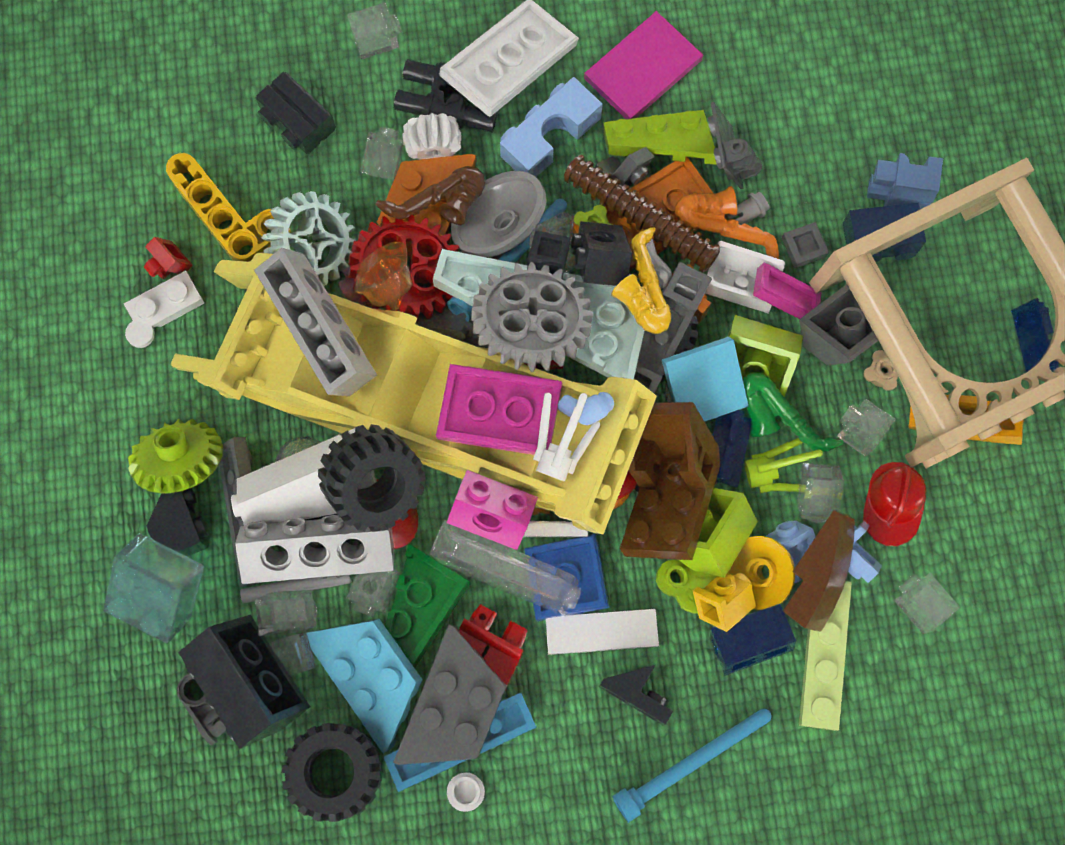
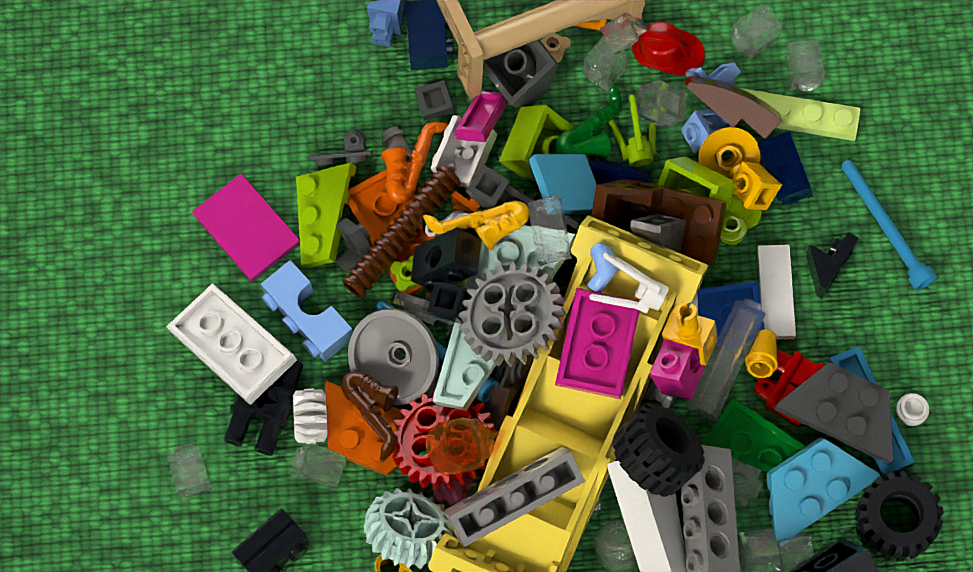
camera: 85 degrees left, 5 degrees down
(515, 514) = (691, 330): none -> yellow bracket
(515, 611) = (763, 355): none -> yellow cone
(635, 353) = (549, 230): none -> clear tile
(648, 484) = (661, 230): none -> flat silver slope
(887, 661) = (804, 65): none -> clear brick
(900, 439) = (622, 32): none -> clear bracket

